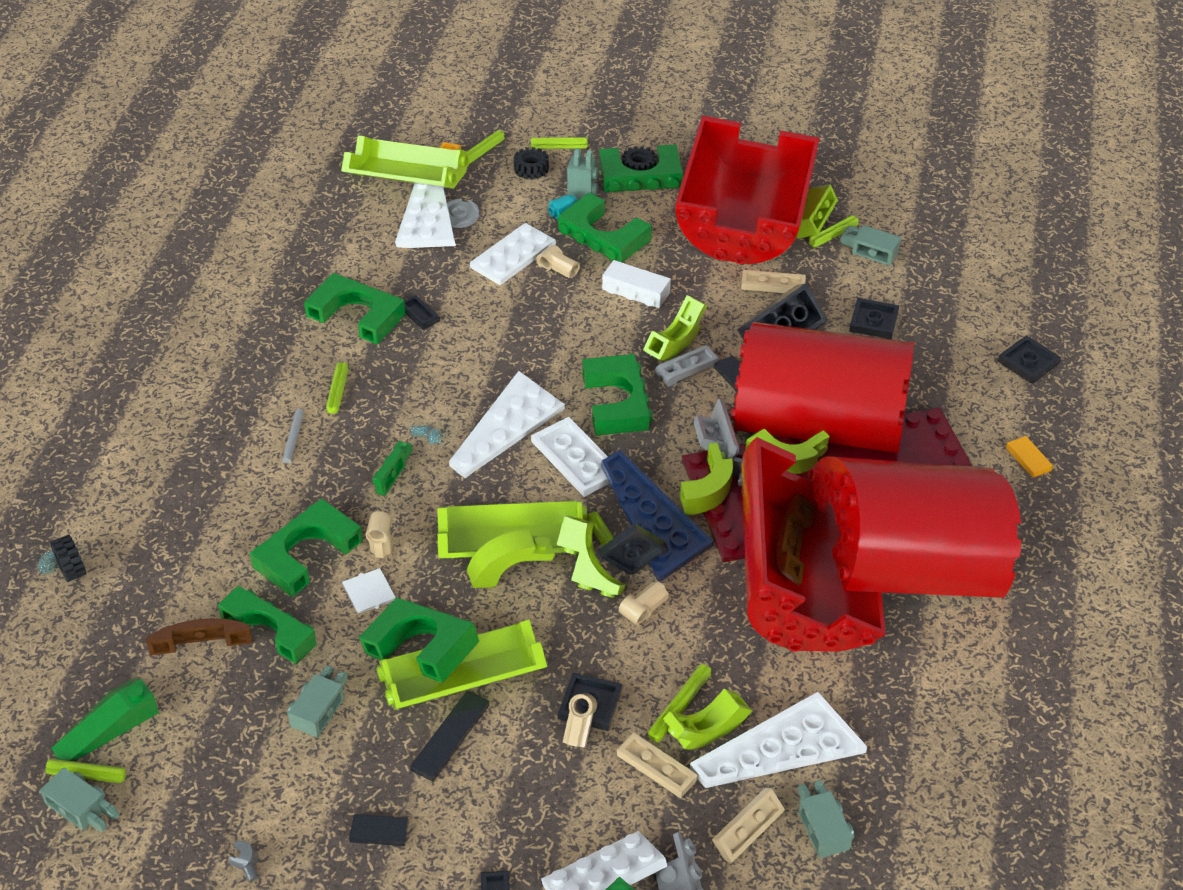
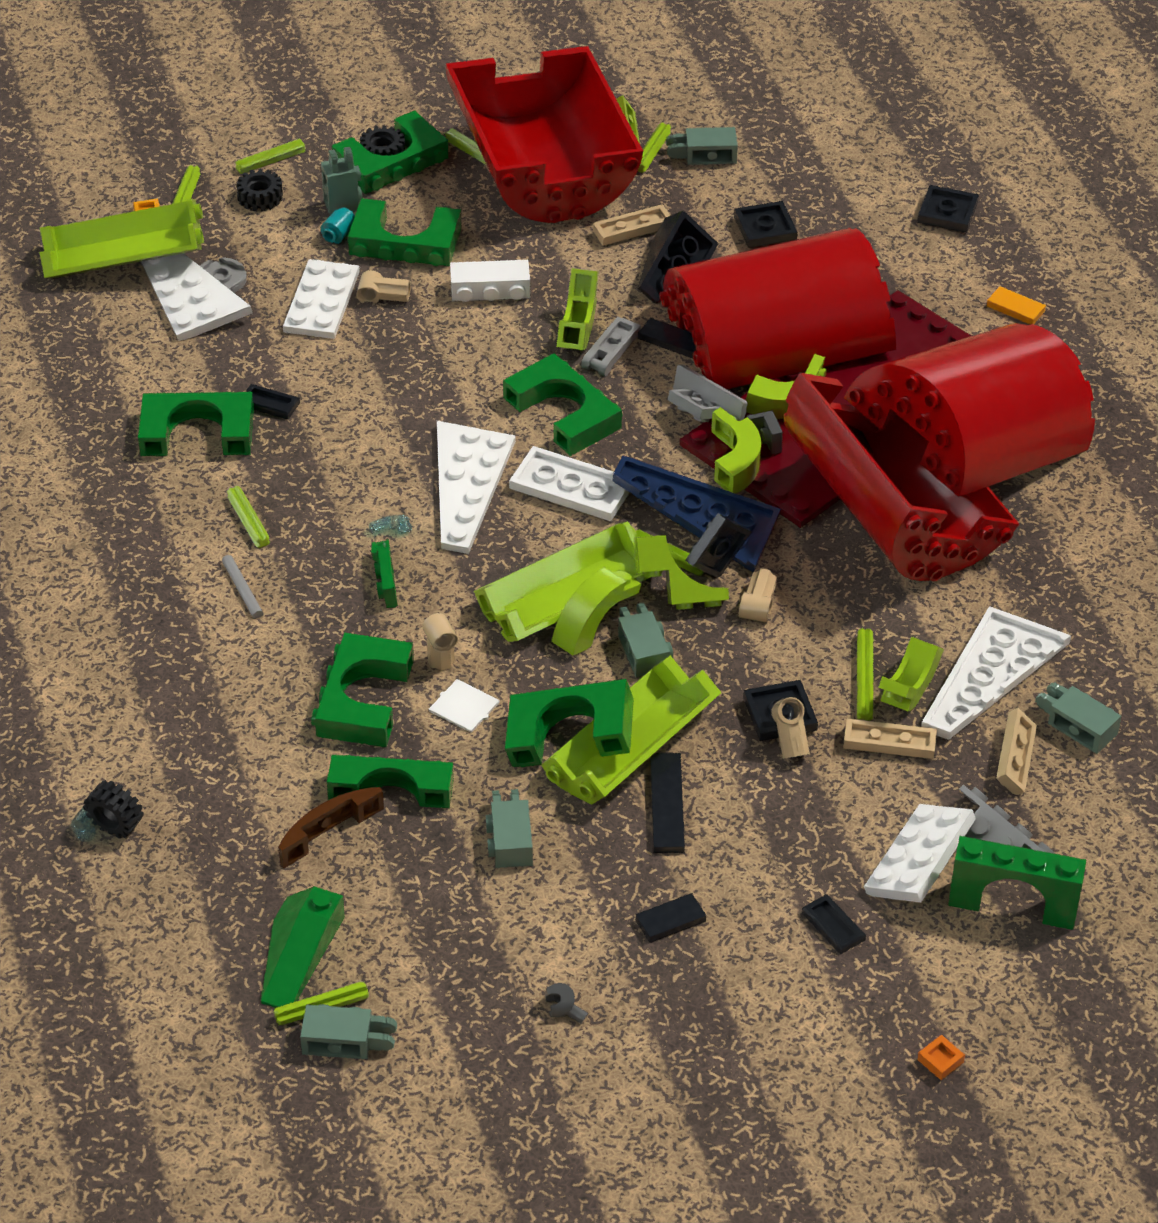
camera: 30 degrees left, 0 degrees up
(530, 598) = (642, 639): none -> sand green hinge

